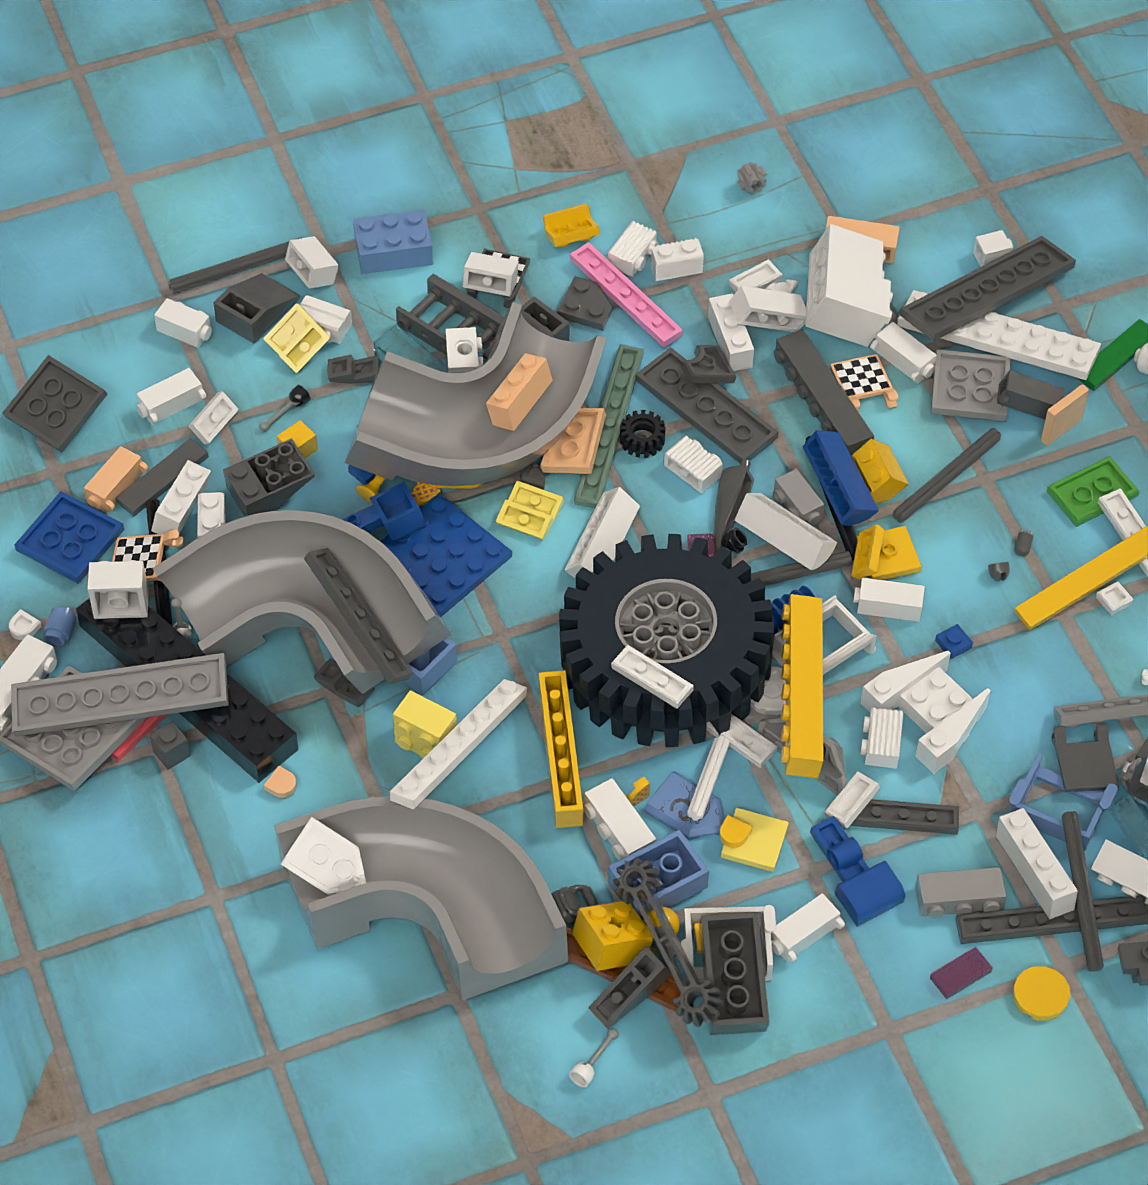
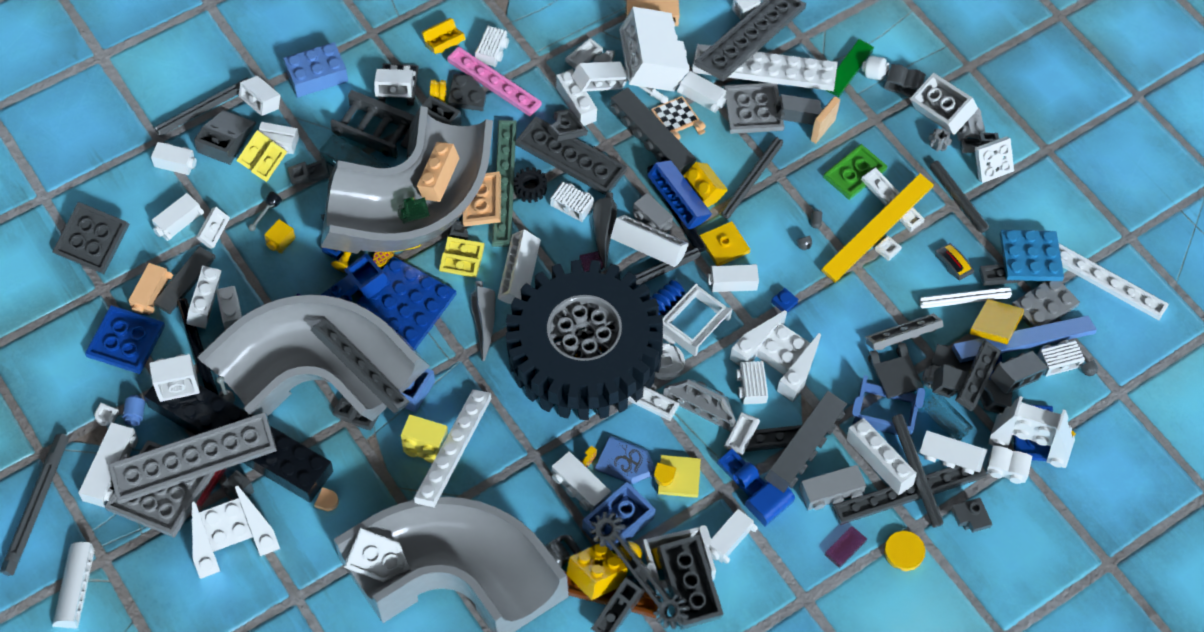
camera: 15 degrees left, 5 degrees up
(141, 789) = (227, 526): none -> white wedge
(146, 549) = (184, 341): flag -> none
(267, 478) = (264, 268): dark grey slope -> none
(463, 350) = (388, 147): white brick -> none
(475, 434) = (413, 210): none -> clear green brick
(542, 584) = (483, 312): none -> light grey piece
(548, 292) = (438, 90): none -> yellow wheel
(560, 749) = (526, 436): yellow brick -> none
(652, 676) = (584, 372): white tile -> none
(677, 259) = (525, 49): white brick -> none
(708, 778) = (636, 437): white axle -> none
(735, 540) = (614, 253): black plate -> none
(803, 686) = (692, 358): yellow brick -> none
(840, 346) = (653, 93): none -> white piece
(867, 552) = (711, 246): yellow plate -> none
(936, 824) = (805, 442): none -> dark grey brick

